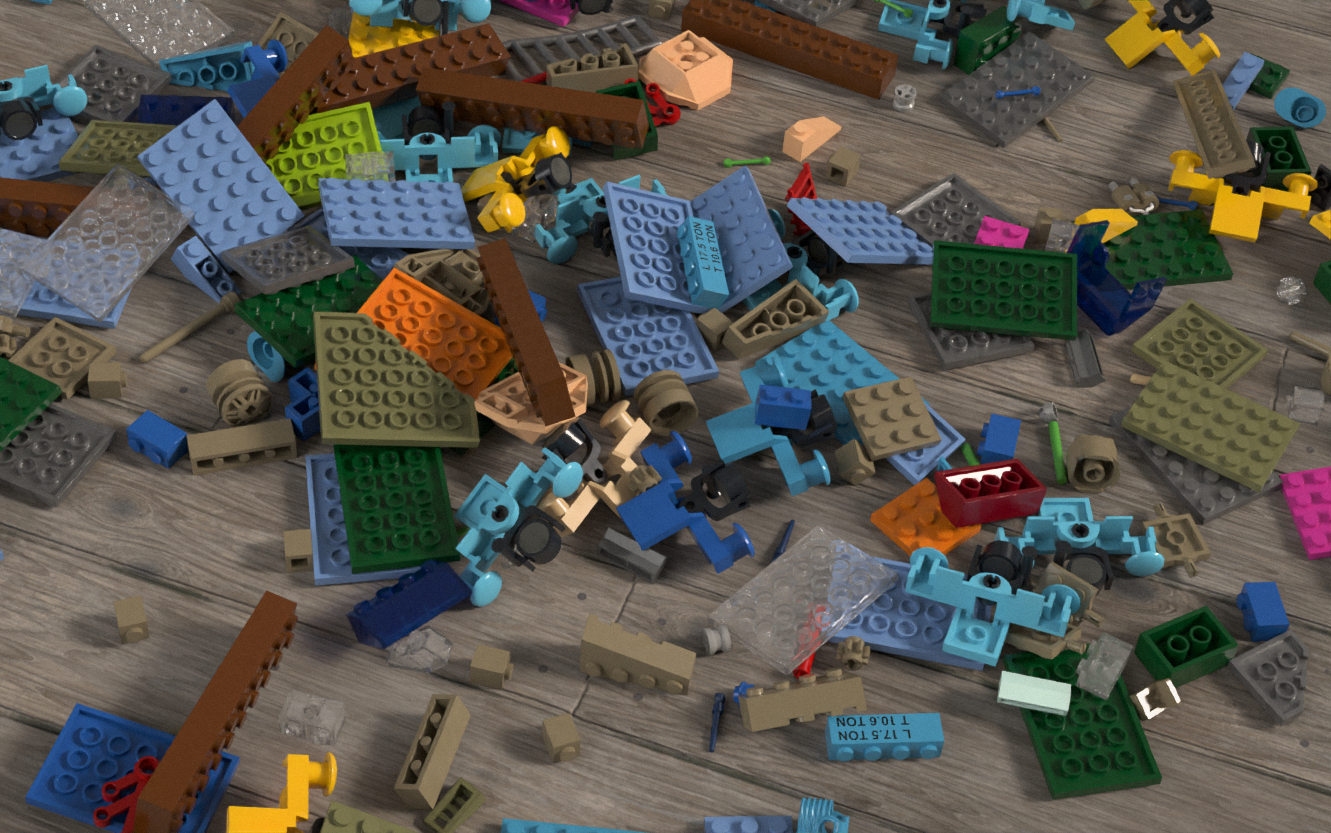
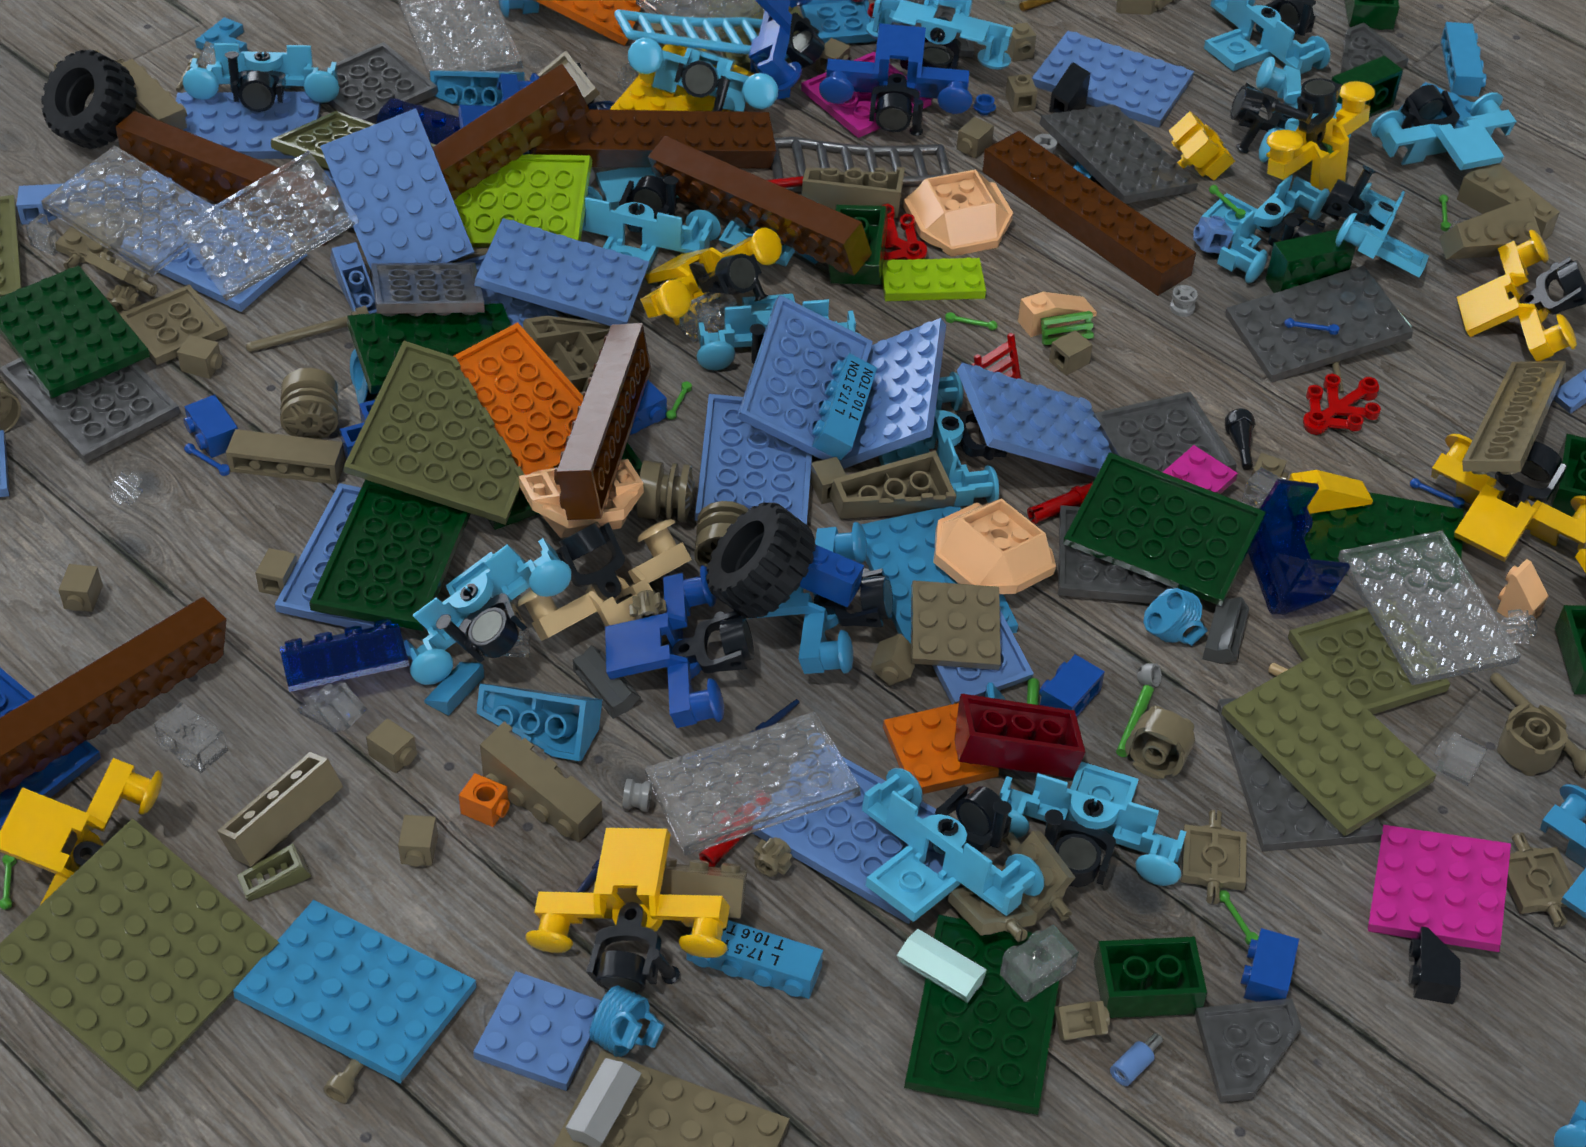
camera: 25 degrees right, 0 degrees up
(114, 518) = (126, 488): none -> clear gear
(188, 475) = (224, 469): none -> blue hinge
(371, 166) = (560, 220): clear brick -> none
(509, 600) = (455, 687): none -> dark azure slope
(547, 284) = (685, 387): none -> bright green hinge
(596, 676) = (484, 800): none -> orange brick
(613, 598) = (551, 720): none -> dark azure wedge
(698, 134) = (933, 279): none -> lime plate
(747, 422) = (760, 560): none -> black tyre
(766, 692) = (631, 861): none -> yellow piece
(842, 141) = (1088, 325): none -> bright green tile
(880, 345) = (993, 548): none -> light nougat piece
(899, 36) = (1212, 234): none -> medium blue brick
(914, 285) = (1052, 507): none -> red pin
(1005, 189) = (1240, 424): none -> black piece
(1048, 360) = (1173, 614): none -> dark azure piece
(1060, 169) = (1318, 421): none -> red plant
(1135, 200) = (1384, 476): dark tan piece -> none
(1206, 717) = (1135, 1060): none -> medium blue piece
(1225, 295) = (1428, 608): none -> clear plate
(1232, 593) = (1225, 898): none -> bright green hinge
(1284, 263) = (1523, 591): none -> light nougat slope

